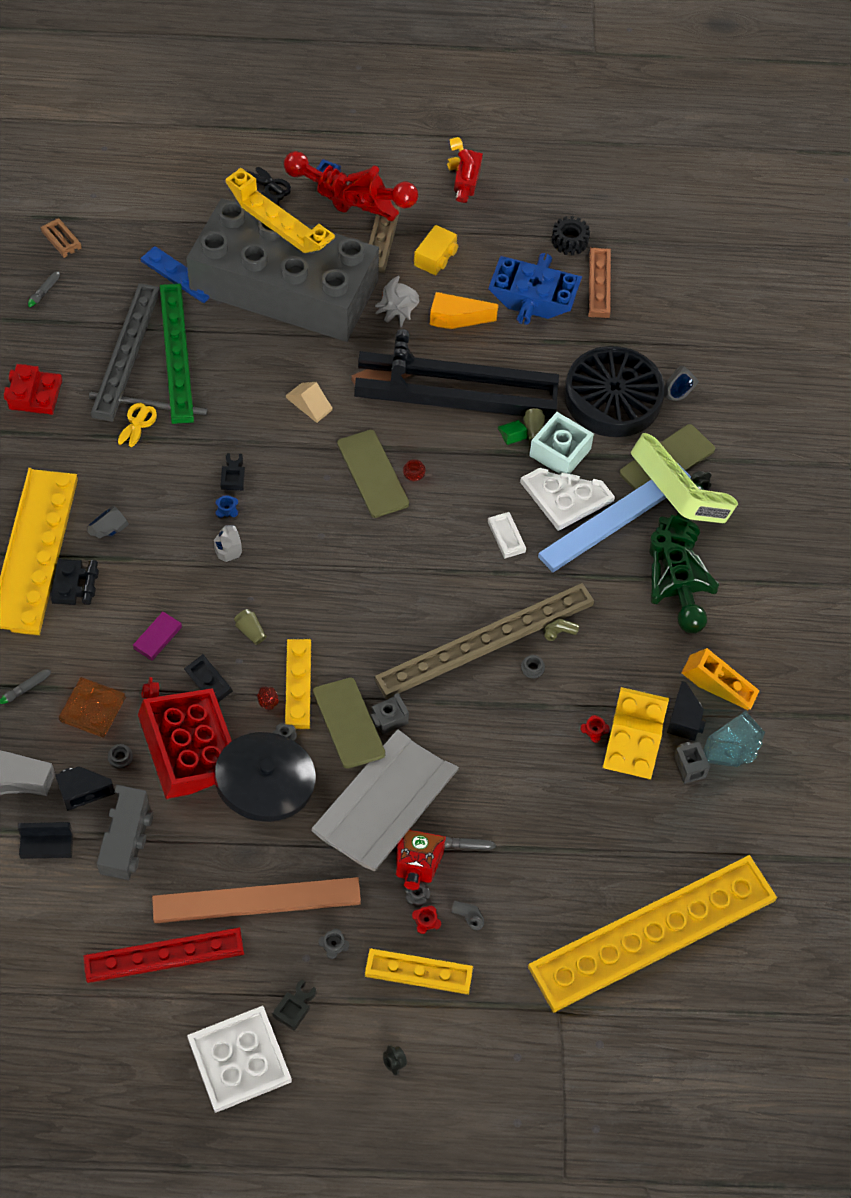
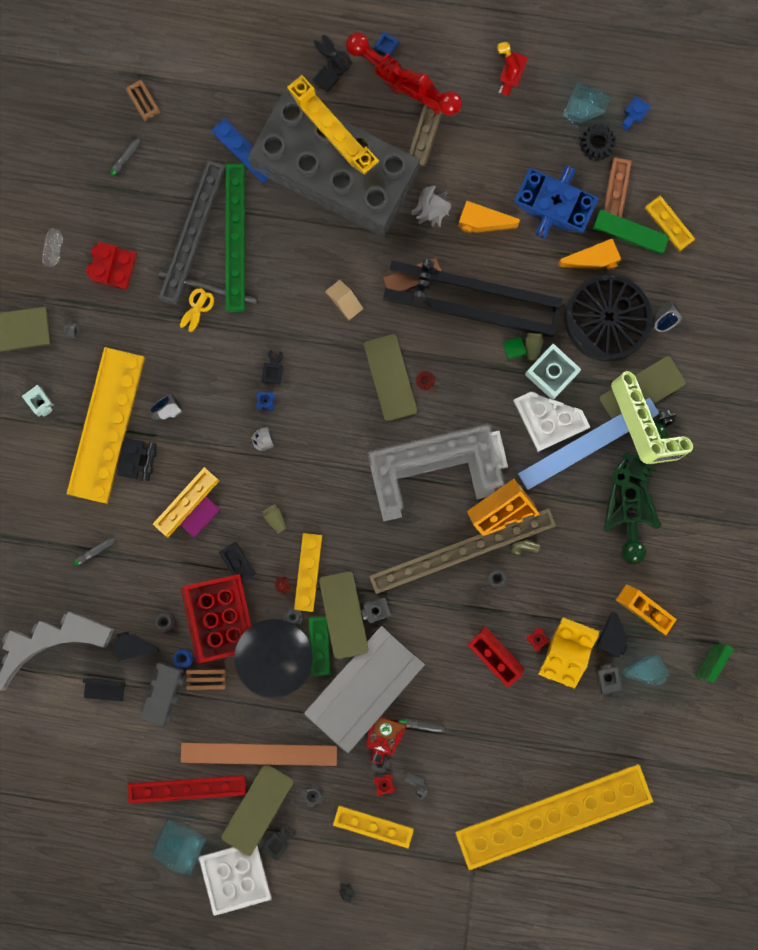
camera: 15 degrees right, 25 degrees up
(92, 707) = (145, 575): clear orange plate -> none
(138, 619) = (186, 502): none -> yellow plate
(150, 689) = (191, 569): red plate -> none
(153, 791) = (176, 658): none -> blue plate
(159, 817) = (205, 687): none -> medium nougat tile
(159, 1026) = (178, 847): none -> clear light blue slope
(261, 967) = (257, 810): none -> olive piece
(321, 754) = (320, 646): none -> green tile
(389, 537) = (467, 446): none -> light grey arch
(436, 250) = (473, 148): yellow brick -> none
(527, 583) = (501, 508): none -> light orange wedge
(547, 747) = (496, 657): none -> red brick
(548, 203) = (586, 103): none -> clear light blue slope
(584, 336) = (593, 258): none -> light orange slope
(606, 207) = (635, 111): none -> blue plate
(623, 310) = (630, 232): none -> green tile
(664, 302) = (669, 223): none -> yellow tile
(816, 718) = (714, 662): none -> green tile

